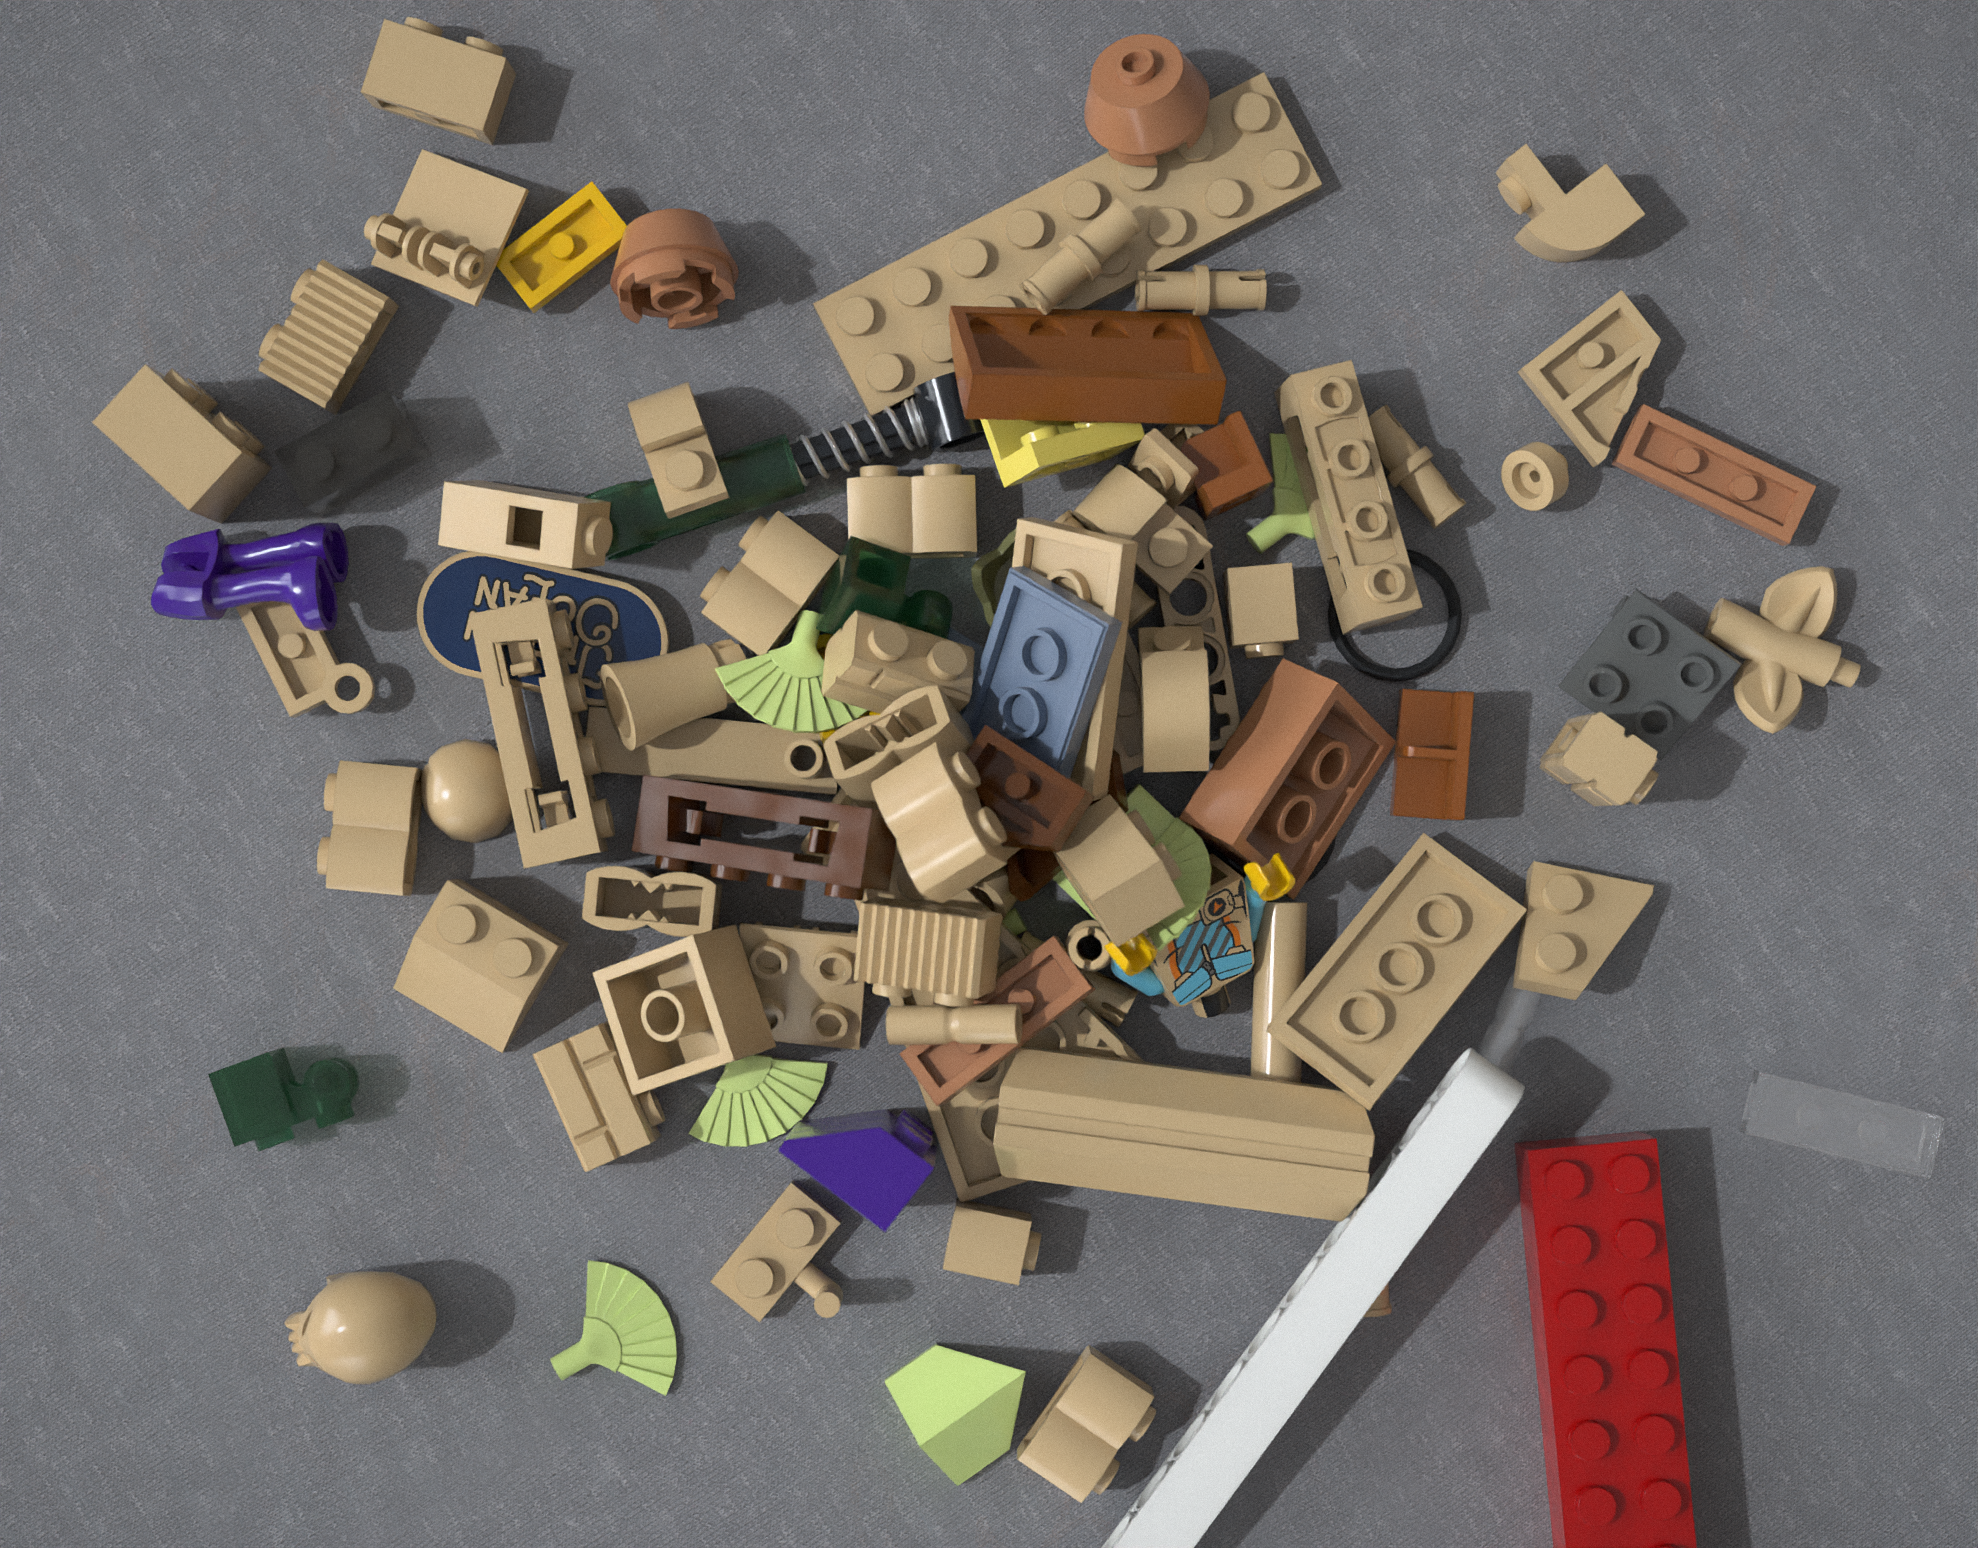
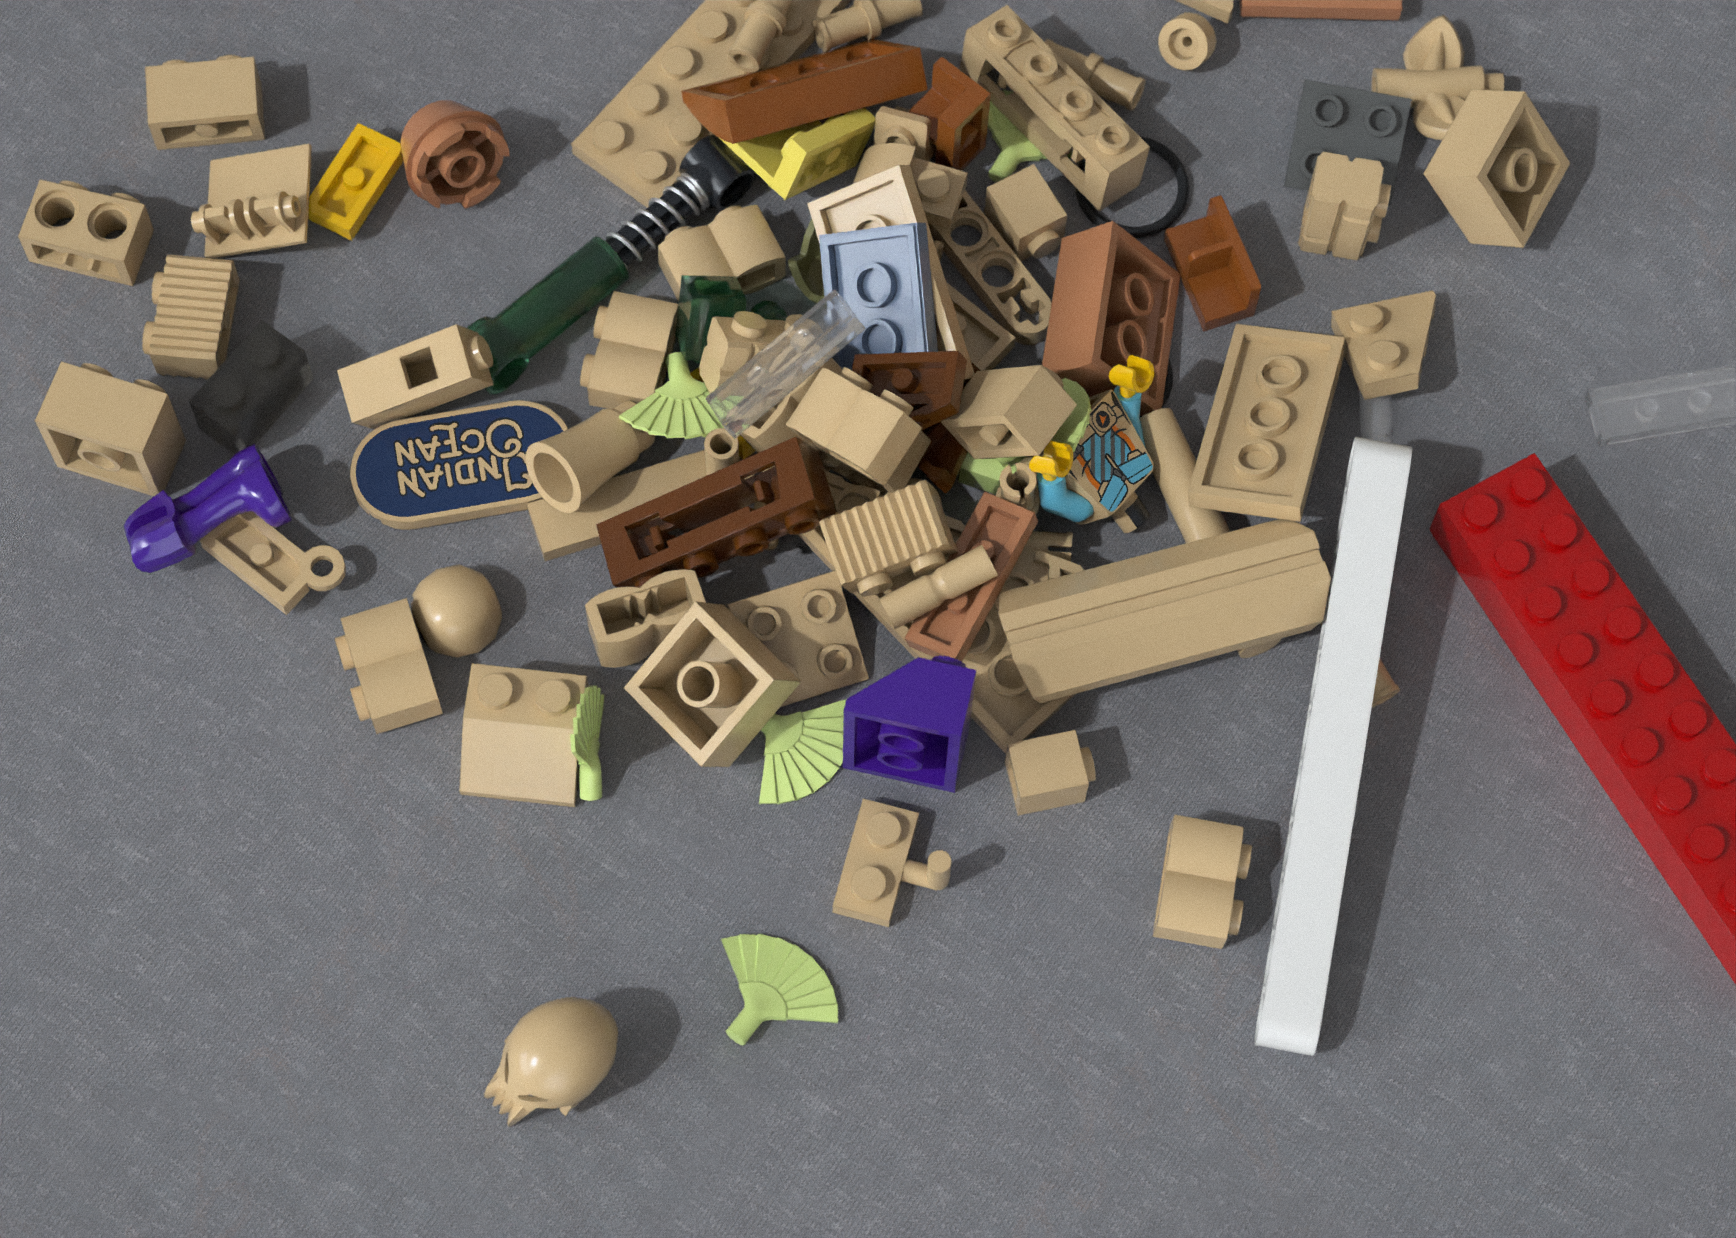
camera: 25 degrees left, 20 degrees down
(248, 191) = (82, 242): none -> tan brick
(265, 1100) = (396, 919): clear green brick -> none
(528, 1016) = (586, 742): none -> yellowish green hand
(563, 699) = (449, 456): tan brick -> none
(596, 1099) = (671, 793): tan brick -> none
(678, 450) = (513, 274): tan brick -> none
(904, 709) = (784, 363): none -> clear tile
(958, 1408) = (1090, 916): yellowish green slope -> none
(1174, 699) = (994, 291): tan brick -> none
(1789, 792) = (1497, 168): none -> tan brick

